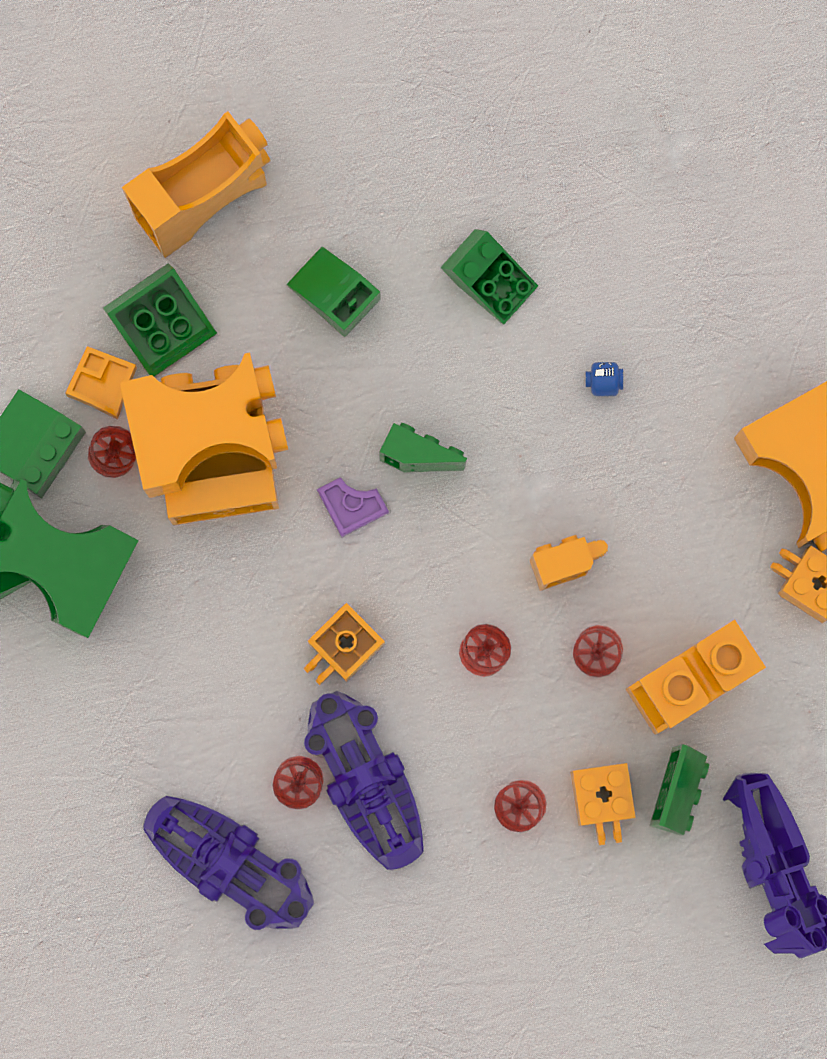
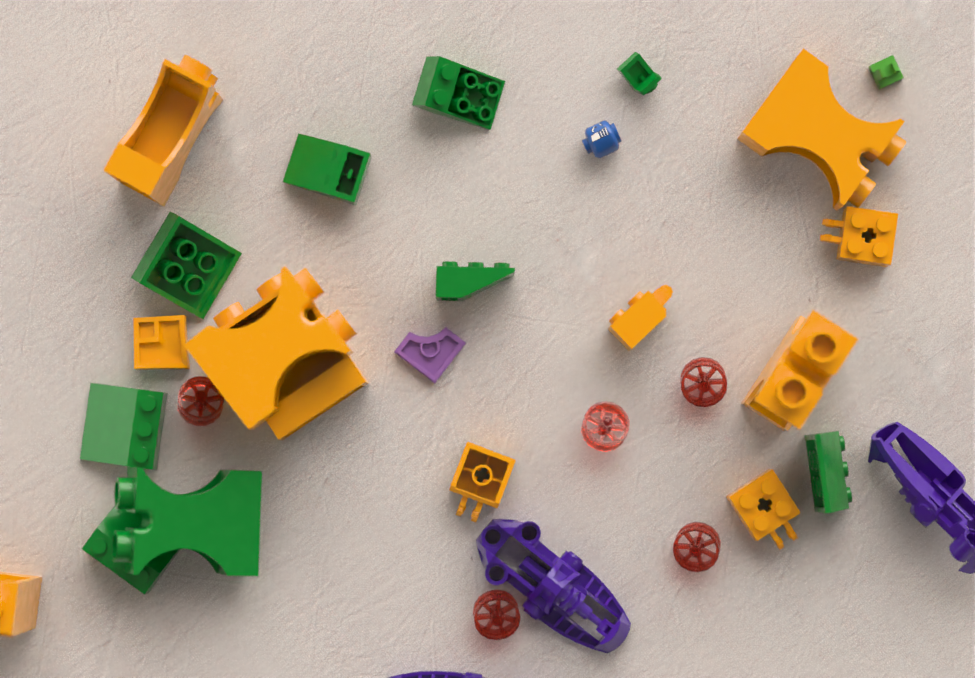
camera: 20 degrees left, 5 degrees up
(667, 335) = (639, 74): none -> green bracket

